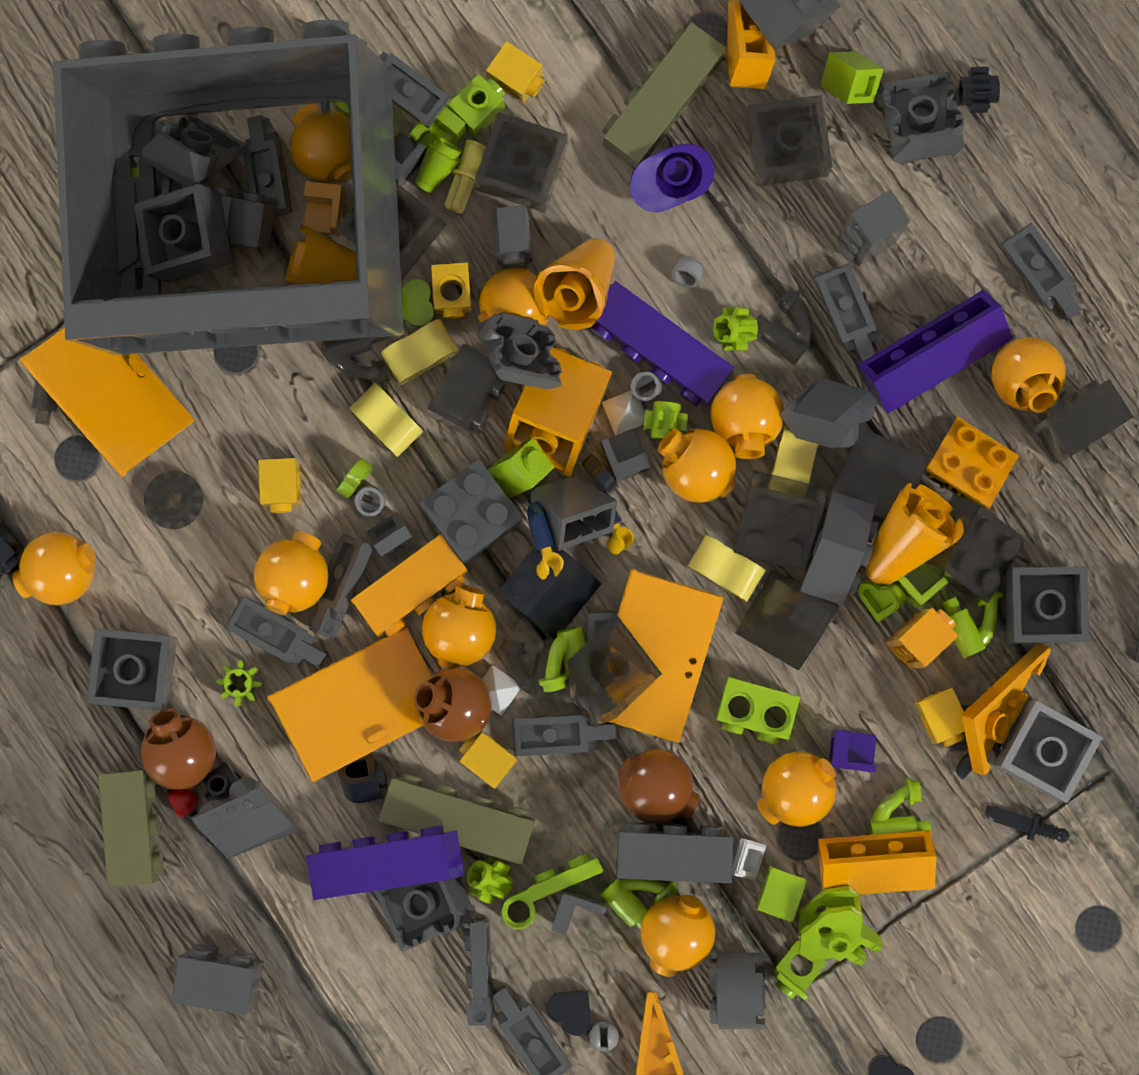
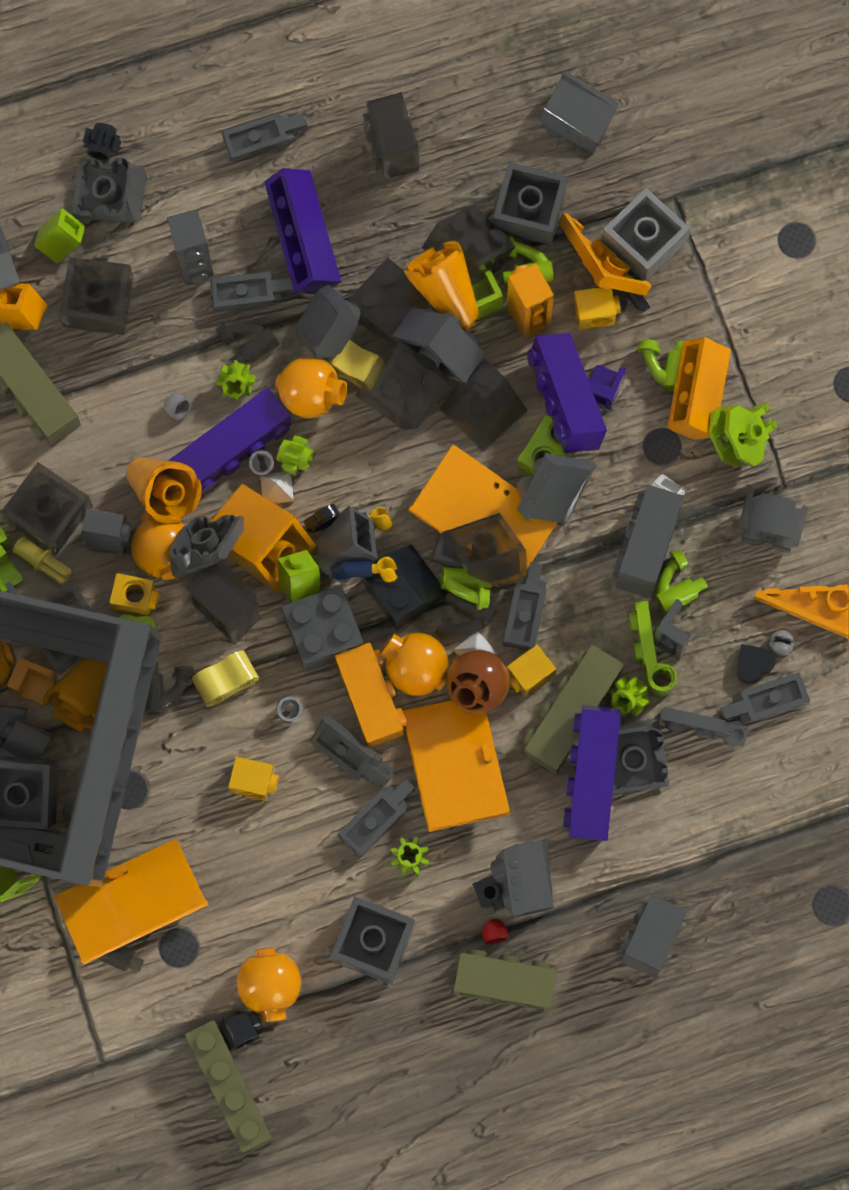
camera: 75 degrees left, 10 degrees down
(156, 497) = (226, 865): clear smoke gear -> none
(177, 750) = (452, 919): dark orange brick -> none
(291, 574) = (331, 786): light orange brick -> none
(354, 478) = (266, 716): lime tile -> none
(362, 780) = (519, 776): black plate -> none
(389, 535) = (322, 700): dark grey tile -> none
(419, 352) = (177, 636): light yellow axle -> none
(437, 163) = (25, 578): lime cone -> none
(625, 455) = (312, 496): dark grey panel -> none
(657, 787) = (590, 541): dark orange brick -> none
(671, 177) = (97, 393): dark purple piece -> none
(677, 934) = (714, 557): light orange brick -> none
(698, 464) = (338, 436): light orange brick -> none
(704, 728) = (554, 488): none -> dark grey slope
(726, 569) = (428, 441): light yellow axle -> none
(780, 894) = (703, 470): lime panel -> none
(790, 982) = (777, 483): lime bracket -> none
(797, 789) = (628, 432): light orange brick -> none
(823, 712) = (566, 393): none -> dark purple brick
(881, 598) = (488, 327): lime tile -> none
(971, 463) = (399, 230): light orange hinge -> none
(1027, 824) = (701, 266): black piece -> none
(1029, 374) = (343, 165): light orange brick -> none

